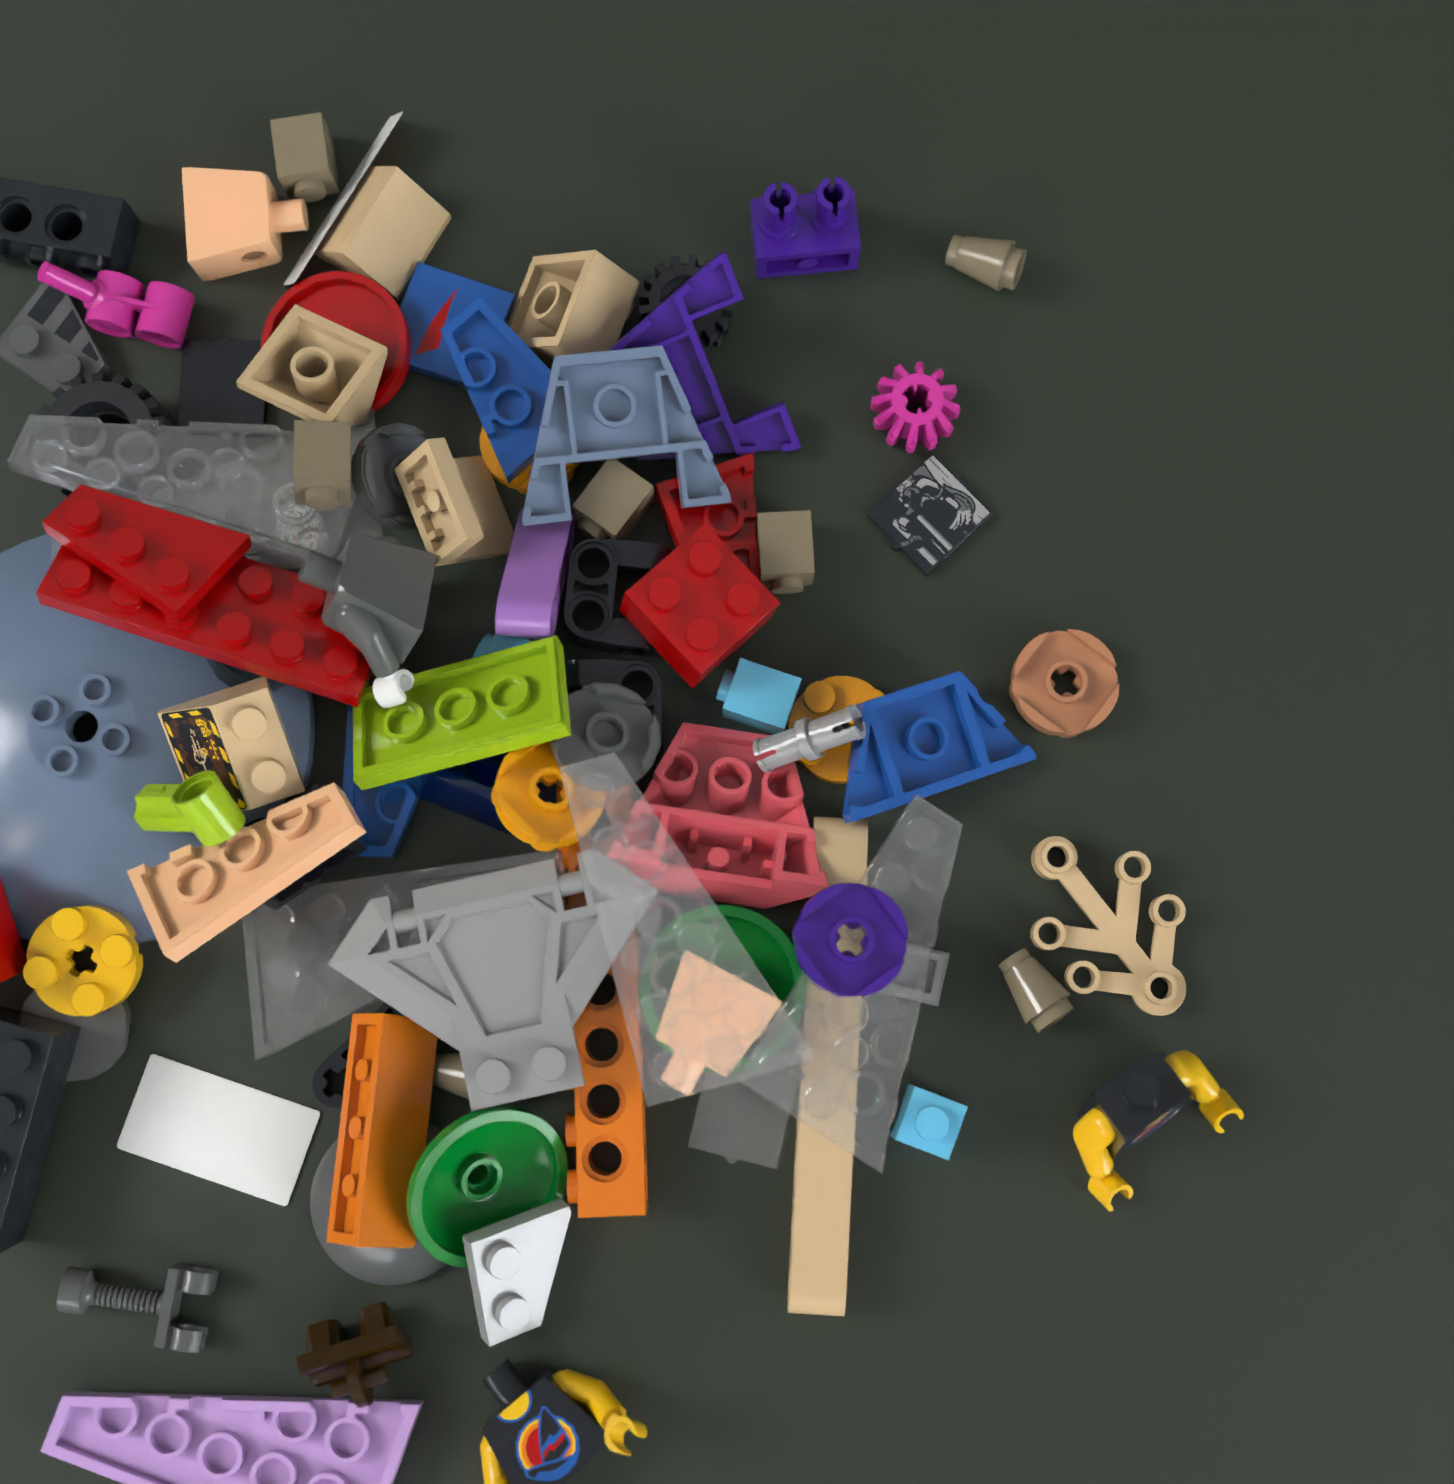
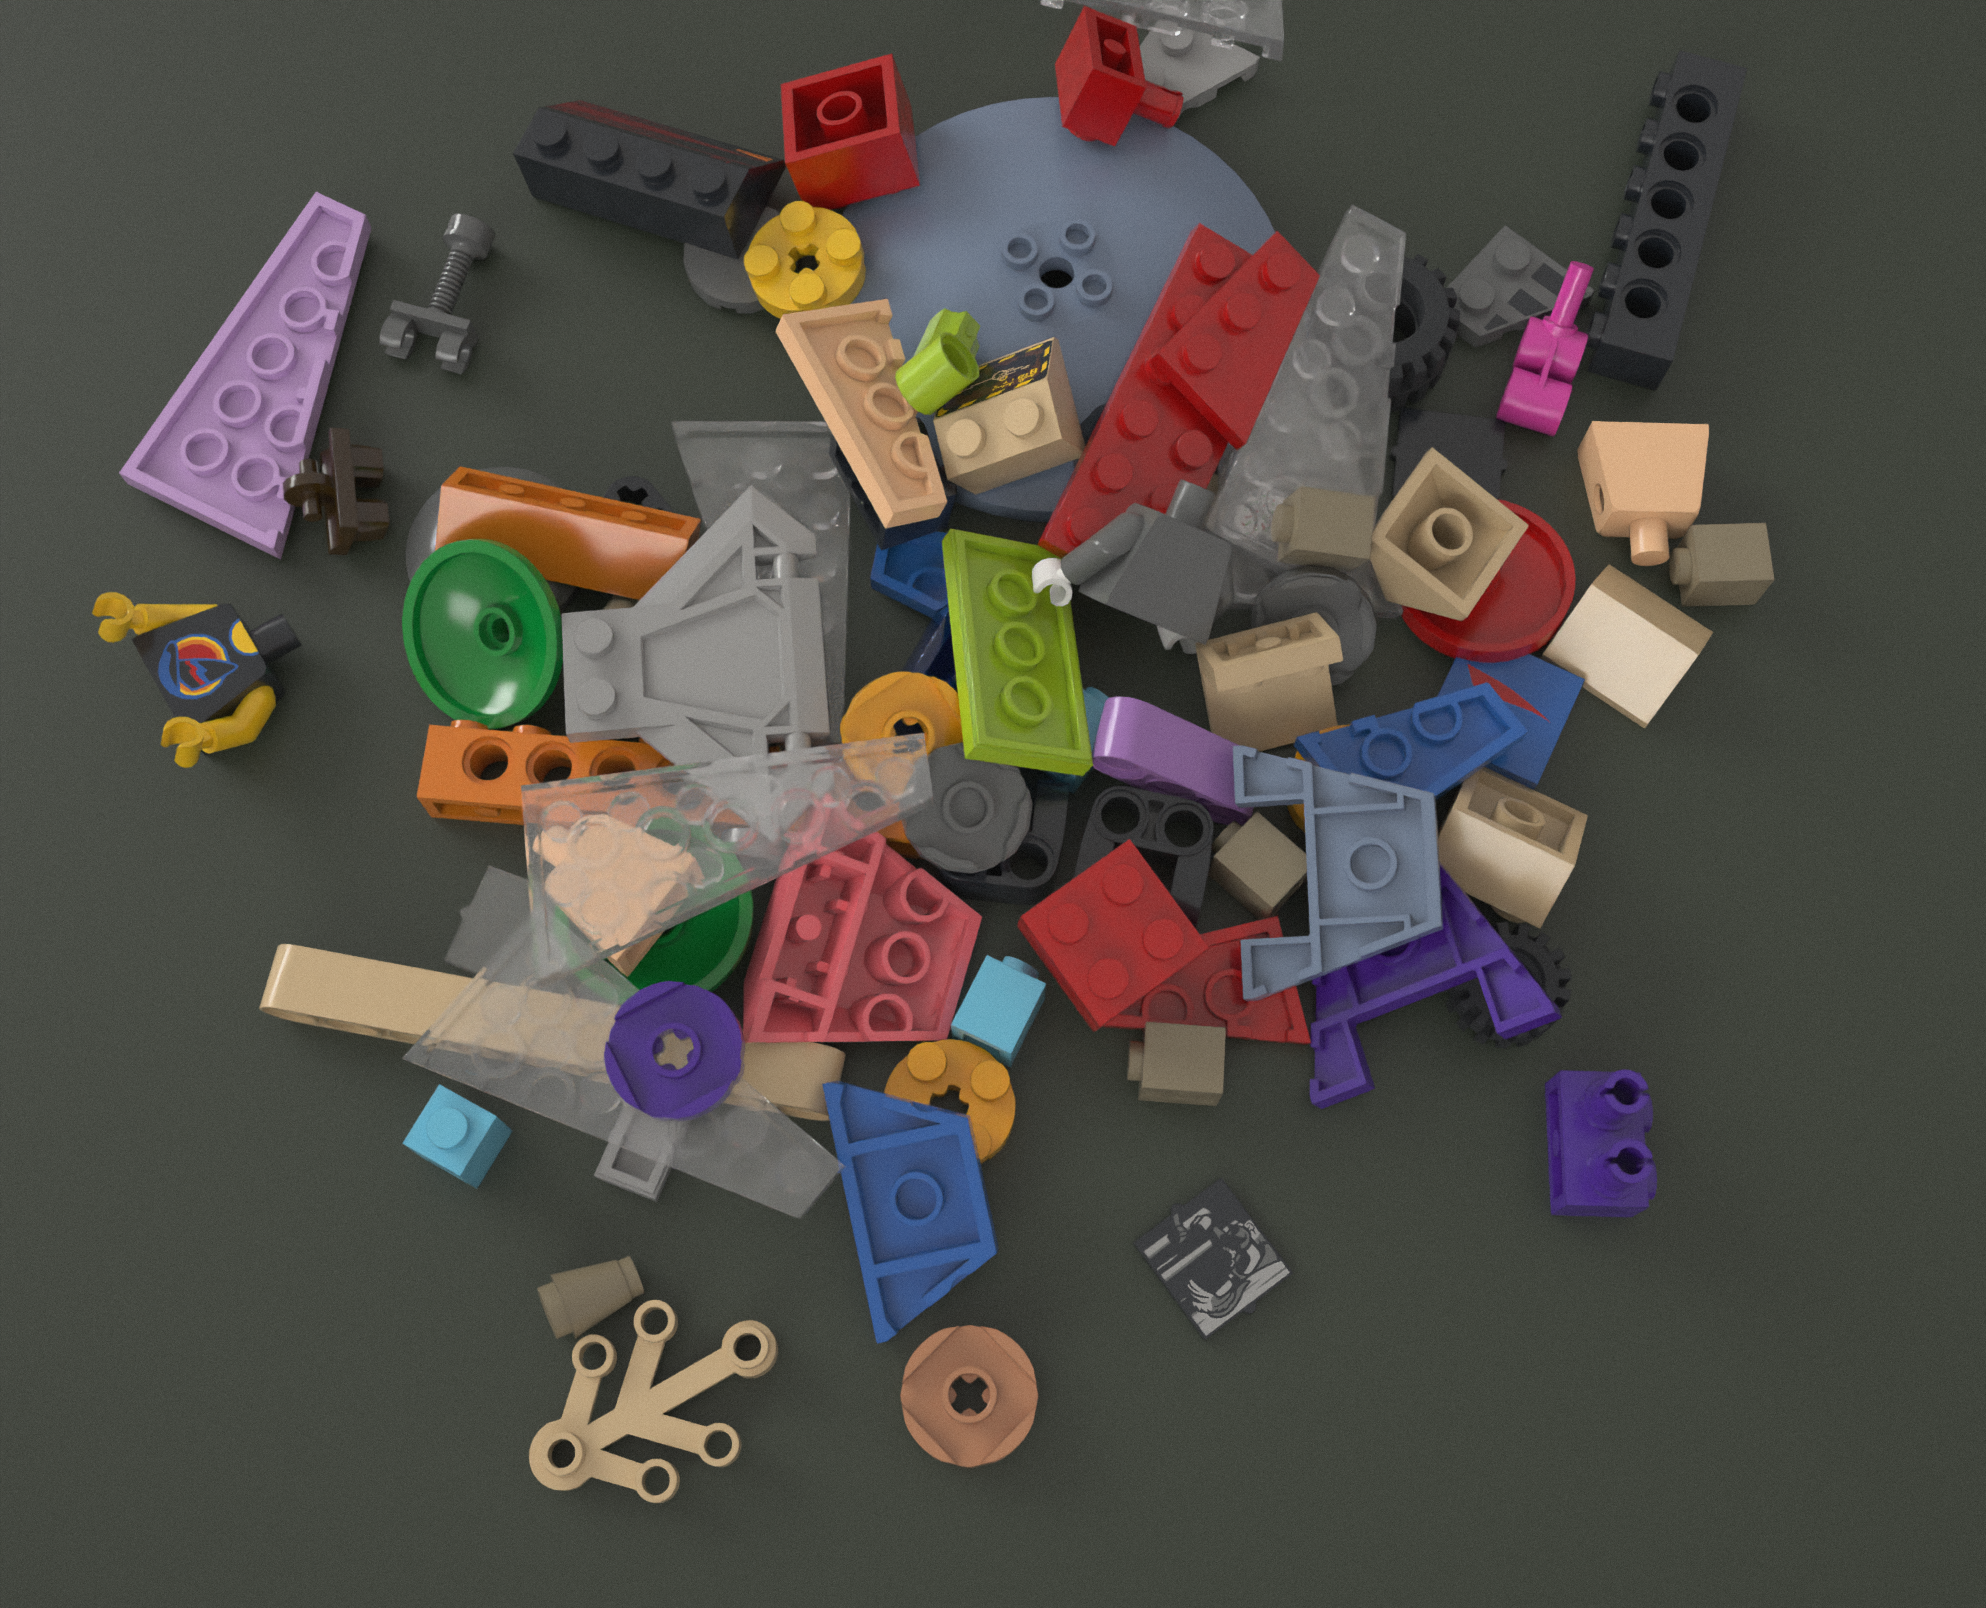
camera: 95 degrees right, 10 degrees down
(218, 1130) = (608, 388): white sticker -> none
(342, 199) = (1672, 605): white sticker -> none
(514, 1269) = (393, 660): wing -> none
(809, 738) = (932, 1048): light grey pin -> none
(924, 424) = (1357, 1278): dark pink gear -> none
(987, 260) = (1547, 1382): dark tan cone -> none
(1136, 1106) = (425, 1400): torso -> none

